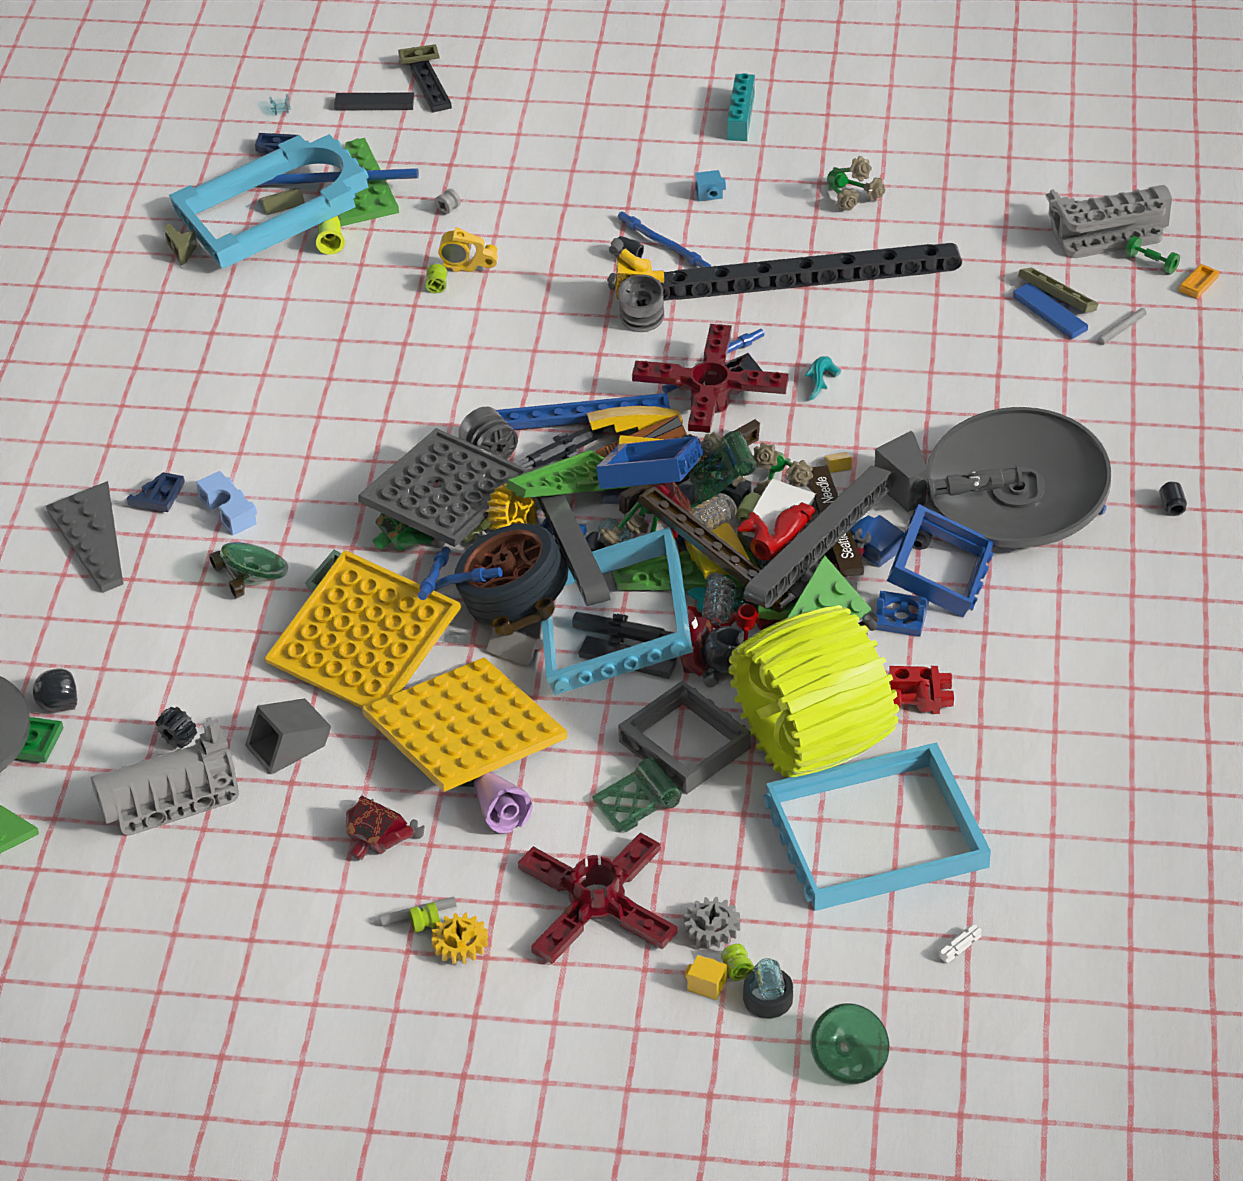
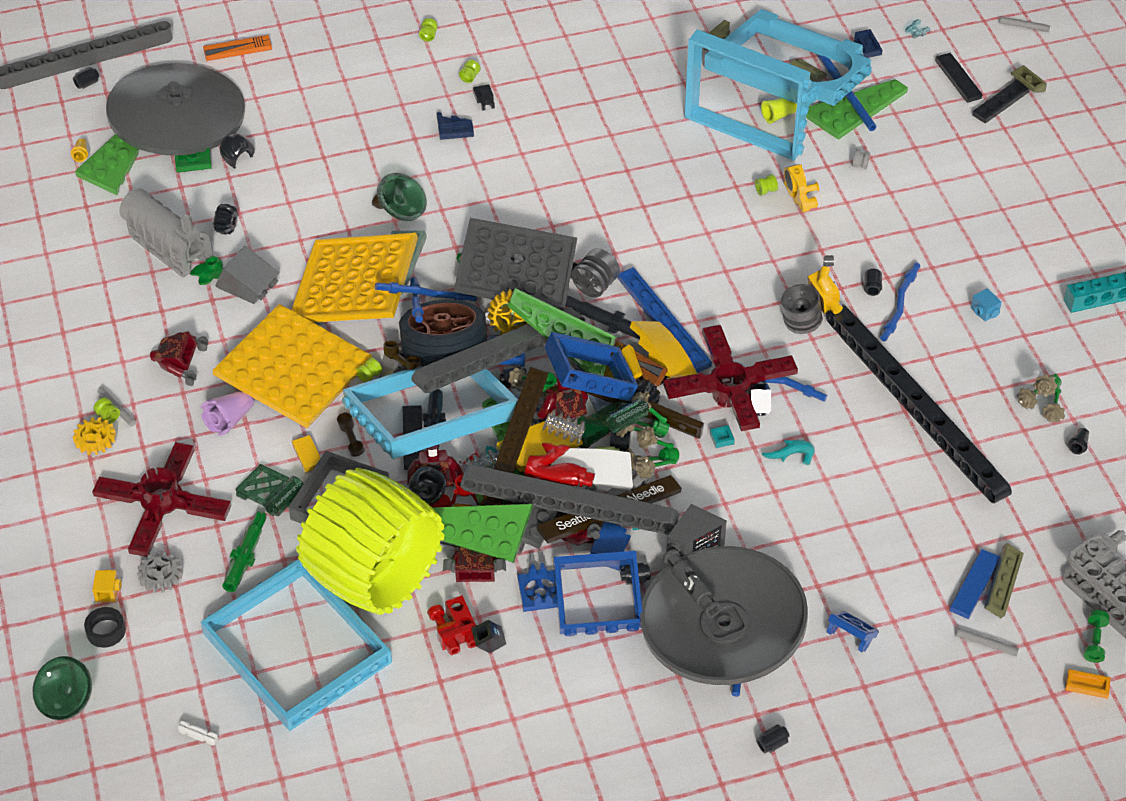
camera: 65 degrees right, 5 degrees up
(75, 453) = (469, 71): none -> lime wheel
(90, 531) = (401, 108): dark grey wing -> none
(123, 454) = (484, 95): none -> black plate
(234, 508) = (467, 157): light blue arch -> none
(249, 771) = (207, 271): none -> green plate
(331, 33) = (1025, 24): none -> light grey bar
(346, 270) = (734, 128): none -> medium azure door
(507, 663) = (368, 370): none -> lime wheel
(599, 752) = (306, 452): none -> yellow tile
(620, 706) = (346, 424): none -> dark brown bar
(729, 839) = (243, 556): none -> green piece
(737, 962) = (126, 599): lime wheel -> none
(769, 978) = (102, 617): clear light blue brick -> none
(771, 418) = (722, 436): none -> teal plate
(838, 462) = (697, 495): yellow slope -> none
(918, 187) = (1079, 442): none -> black cone
(953, 661) = (488, 636): none -> black brick
(1085, 394) = (853, 626): none -> blue piece

